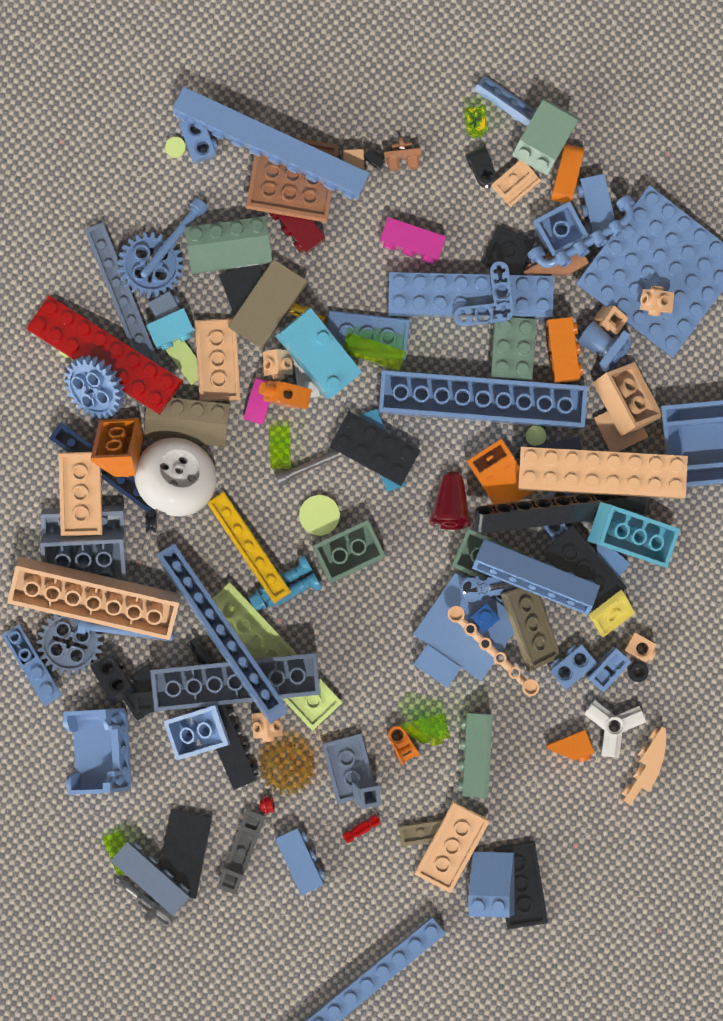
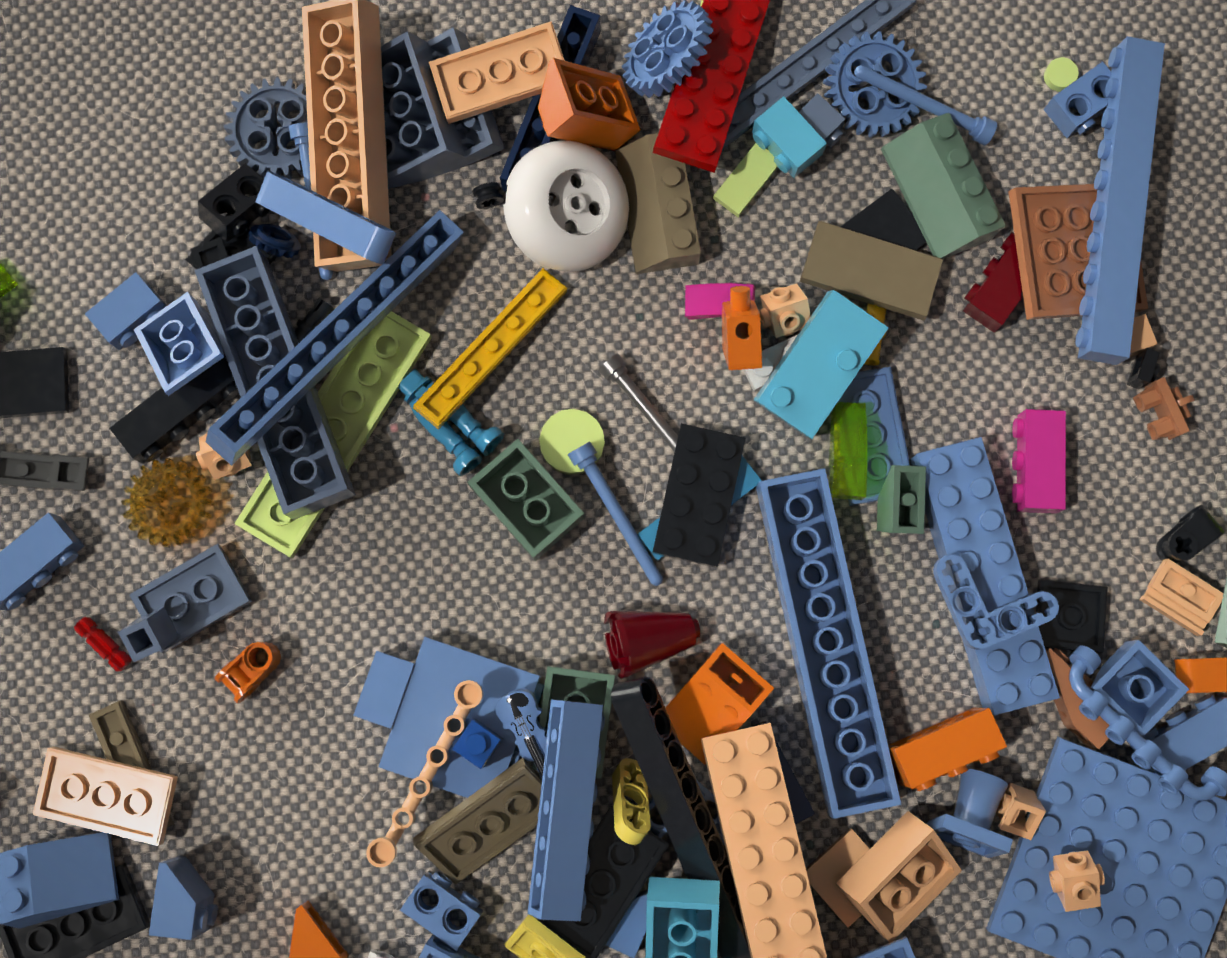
camera: 75 degrees right, 5 degrees down
(32, 665) = (235, 73): medium blue slope -> none
(99, 751) = (122, 220): medium blue windscreen -> none
(143, 661) = (274, 240): none -> dark blue gear
(145, 623) = (325, 217): none -> medium blue beam
(161, 763) = (125, 310): none -> medium blue brick
(217, 361) = (761, 222): light nougat tile -> none
(267, 804) = (104, 488): red plate -> none
(280, 447) = (658, 353): clear neon green slope -> none
(333, 510) = (585, 459): none -> medium blue piece
(414, 330) = (902, 500): none -> sand green slope
(428, 729) = (280, 703): clear neon green slope -> none
(476, 755) = (257, 794): sand green slope -> none
(513, 349) = (922, 668): sand green brick -> none
(527, 813) = (181, 901): none -> medium blue slope
(535, 435) = (794, 742): yellowish green tile -> none
(558, 539) = (637, 829): none -> light yellow beam

